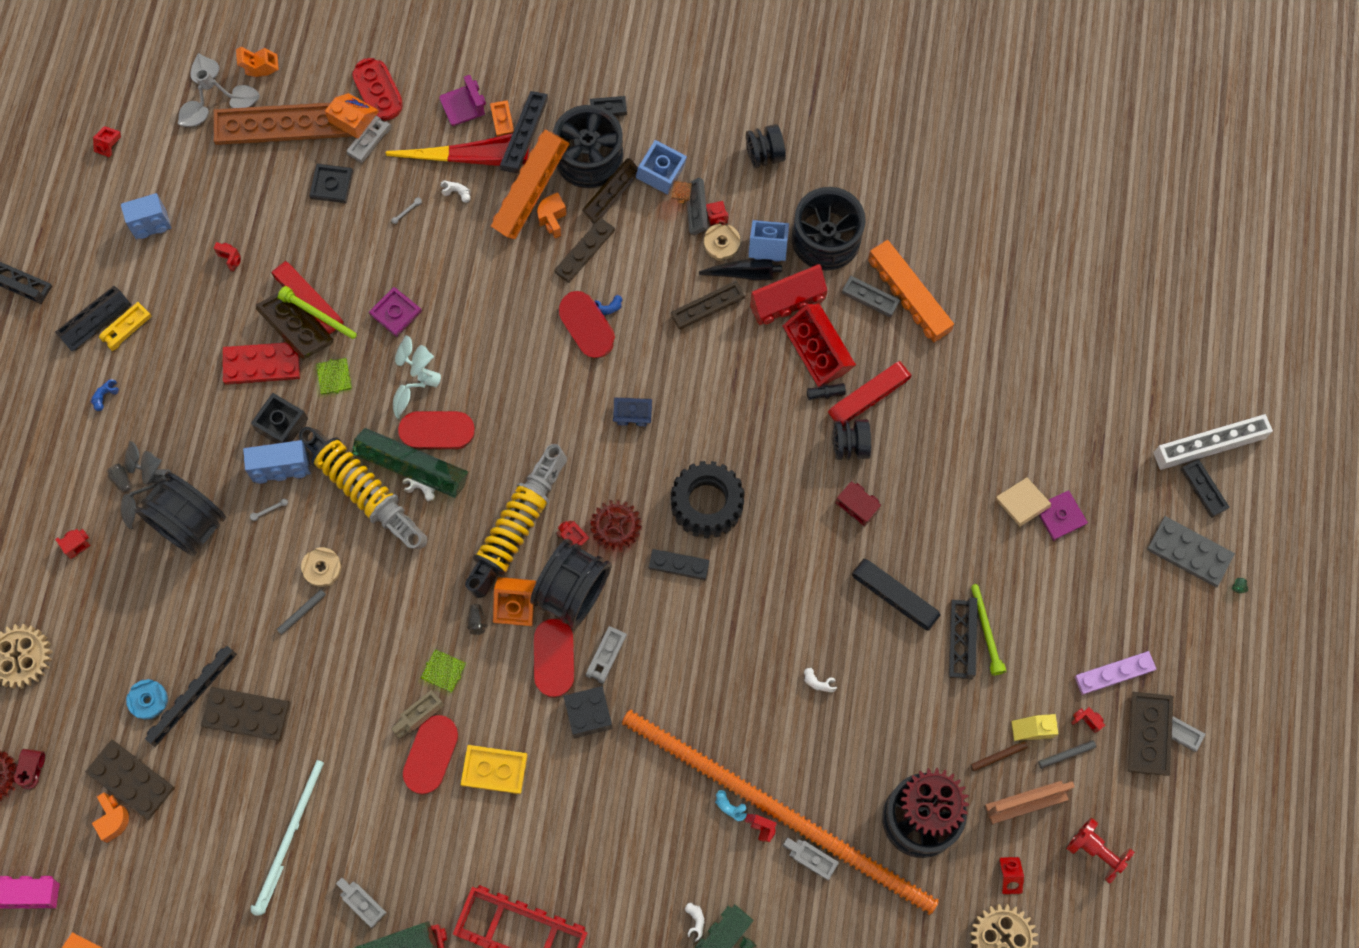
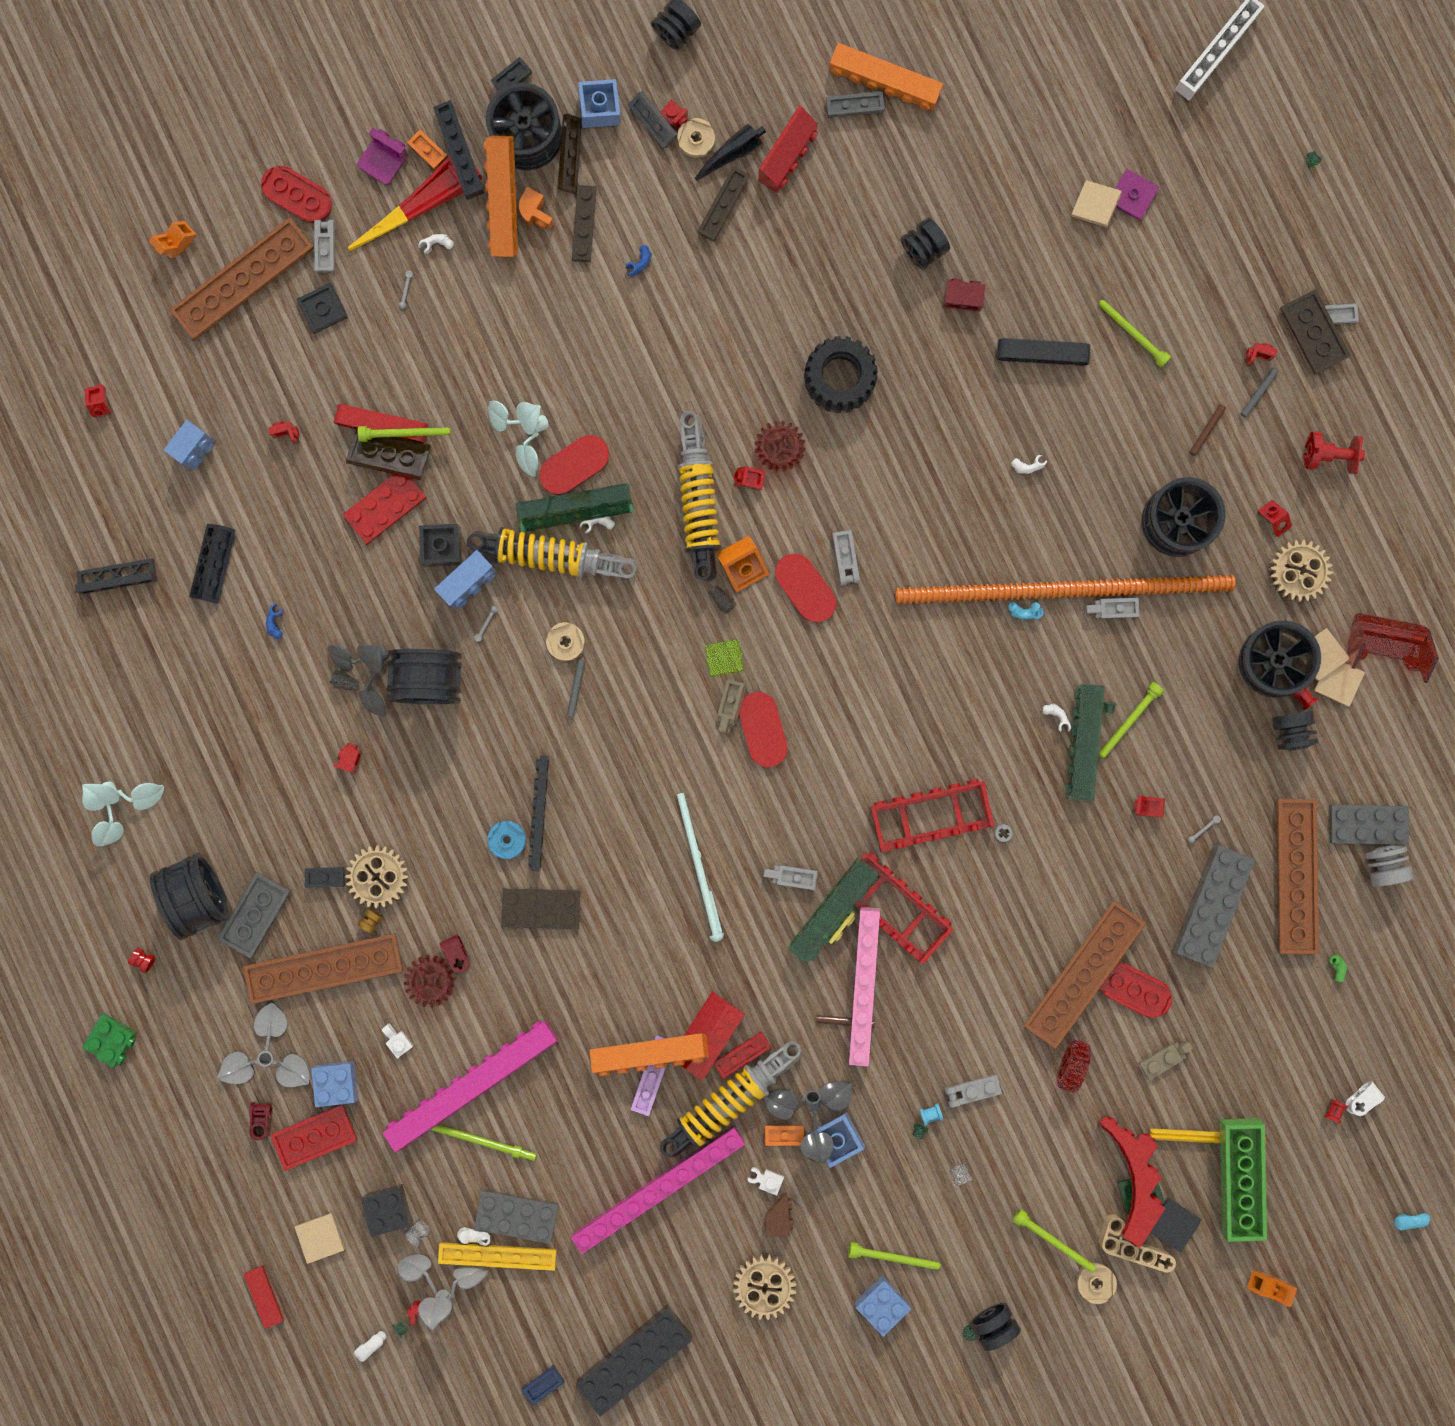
camera: 35 degrees left, 15 degrees up
(114, 820) = (555, 947): orange brick -> none
(125, 326) = (245, 551): yellow plate -> none
(203, 73) = (132, 280): light grey plant -> none
(245, 714) = (592, 797): dark brown plate -> none
(333, 376) = (453, 476): clear neon green piece -> none
(350, 114) = (295, 234): orange slope -> none
(395, 311) = (464, 386): magenta plate -> none
(494, 769) = (822, 707): yellow plate -> none
(570, 583) = (783, 519): black wheel -> none
(586, 324) = (634, 289): red tile -> none
(588, 712) = (864, 612): black brick -> none
(632, 410) = (725, 340): dark blue bracket -> none
(679, 564) = (852, 444): black plate -> none
(681, 191) = (631, 114): clear orange brick -> none
(764, 825) = (1064, 609): red bracket -> none
(768, 240) = (738, 110): medium blue brick -> none
(818, 344) = (840, 177): red slope -> none
(826, 391) = (873, 215): black pin -> none
(828, 249) = (797, 42): black wheel -> none
(870, 393) = (911, 192): red beam -> none
(935, 782) = (1183, 487): dark red gear -> none
(971, 637) = (1126, 348): black fence -> none
(1028, 802) = (1253, 450): nougat fence -> none
(1035, 728) = (1222, 388): light yellow slope -> none
(1115, 673) = (1257, 300): lavender plate -> none
(1190, 551) = (1255, 156): dark grey plate -> none
(1205, 488) = (1235, 93): black plate -> none

